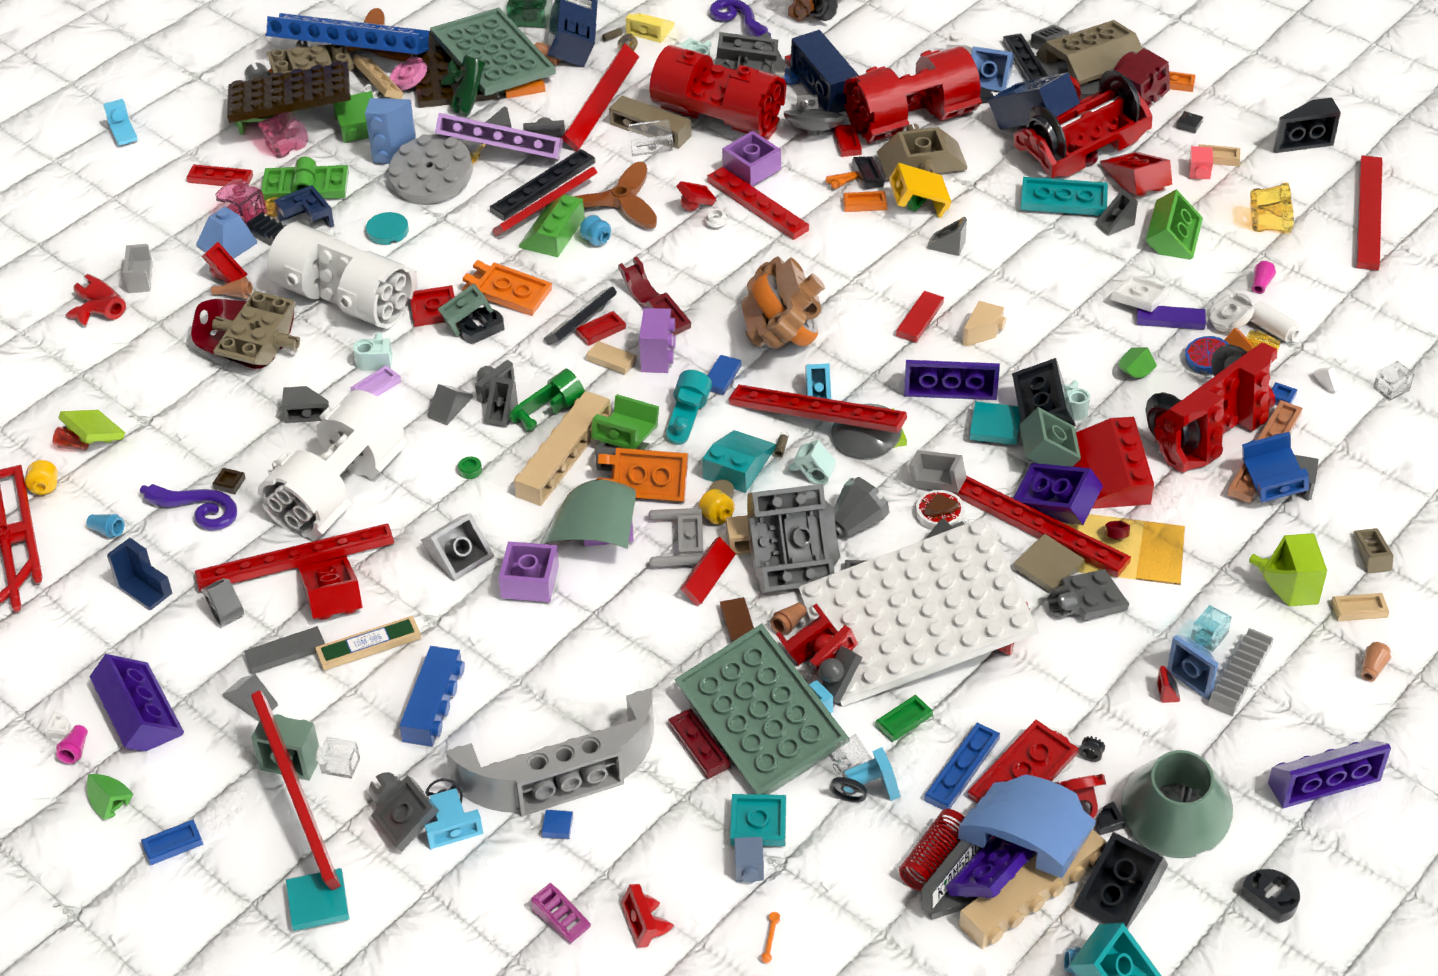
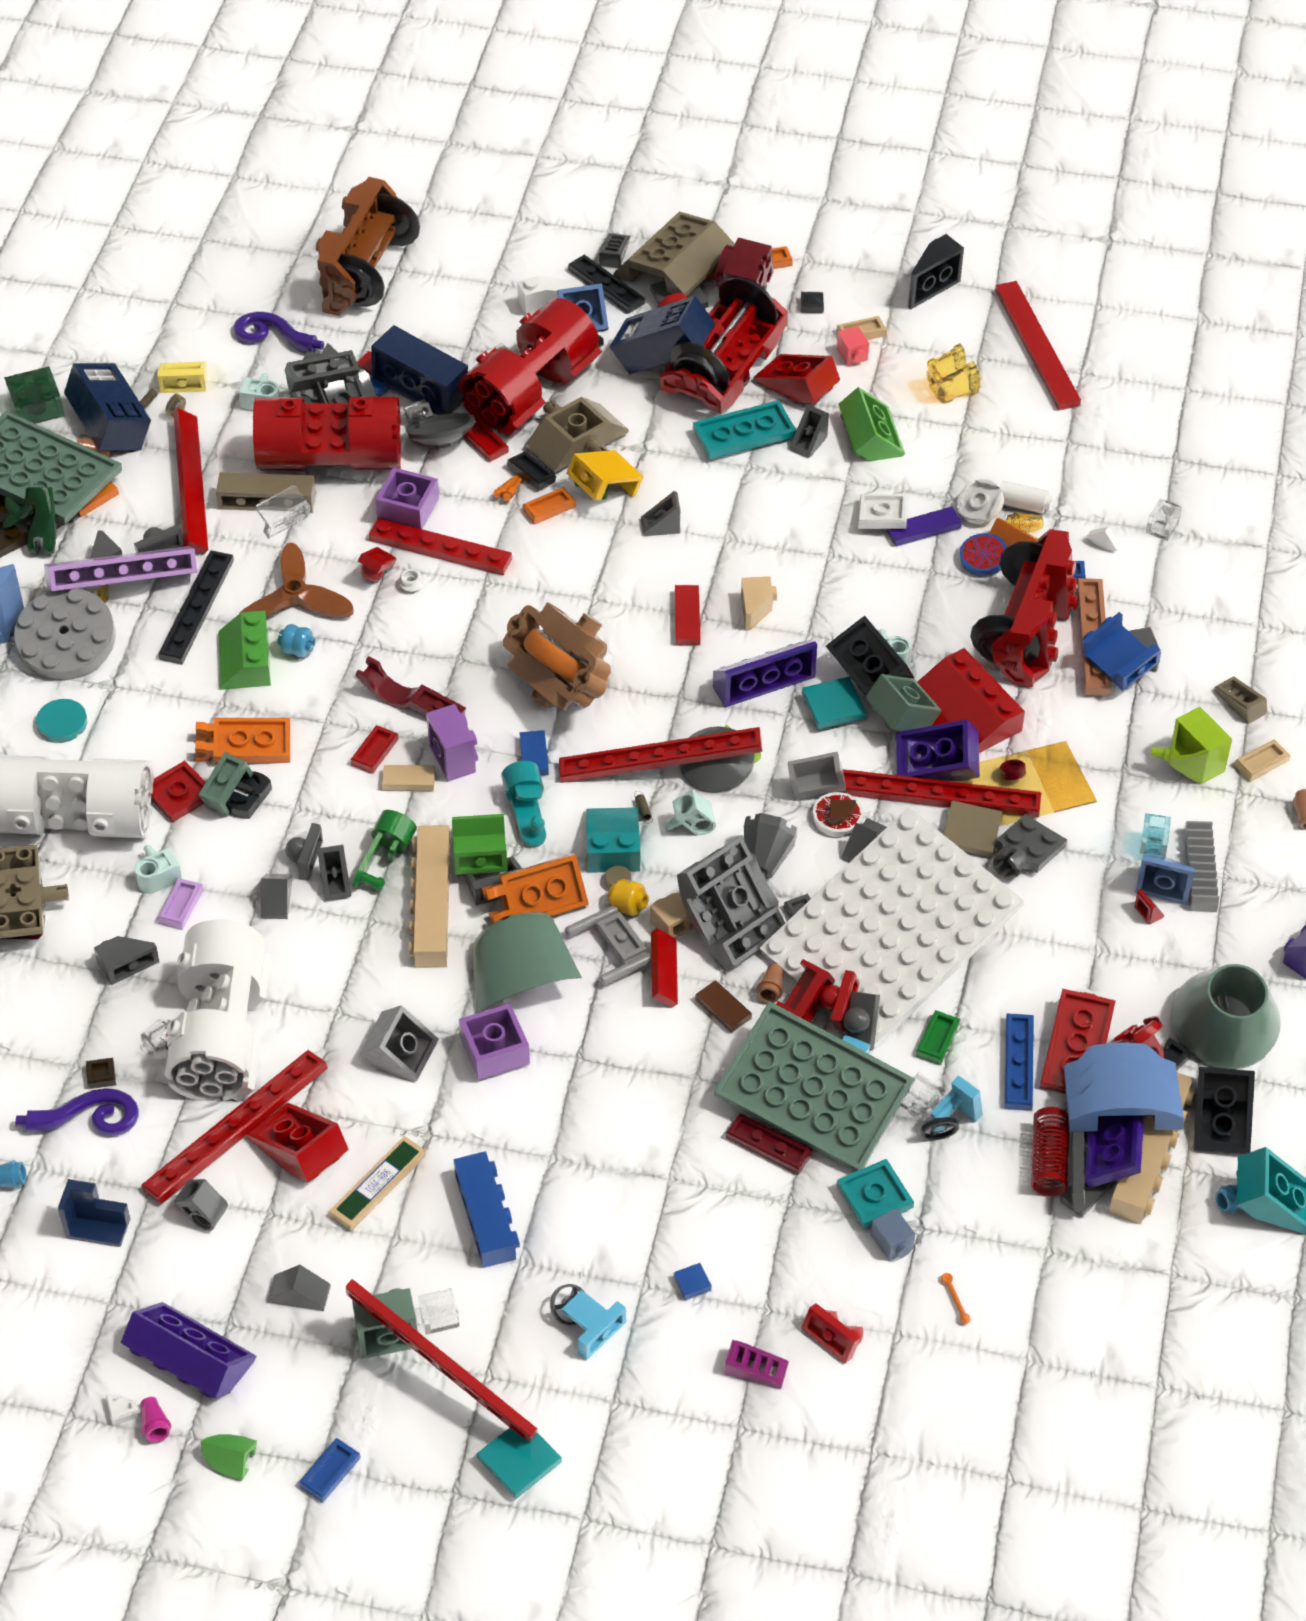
camera: 30 degrees left, 5 degrees up
(283, 650) = (297, 1227): dark grey tile -> none
(400, 808) = (540, 1333): dark grey plate -> none
(469, 467) = (347, 955): green tile -> none
(544, 201) = (216, 627): red tile -> none
(561, 770) = (665, 1231): light grey slope -> none
(580, 315) = (346, 743): black tile -> none
(818, 380) = (639, 724): medium azure slope -> none
(1093, 744) = (1123, 995): black bush -> none
(1137, 362) = (924, 587): bright green brick -> none
(1263, 275) = (983, 450): dark pink cone -> none

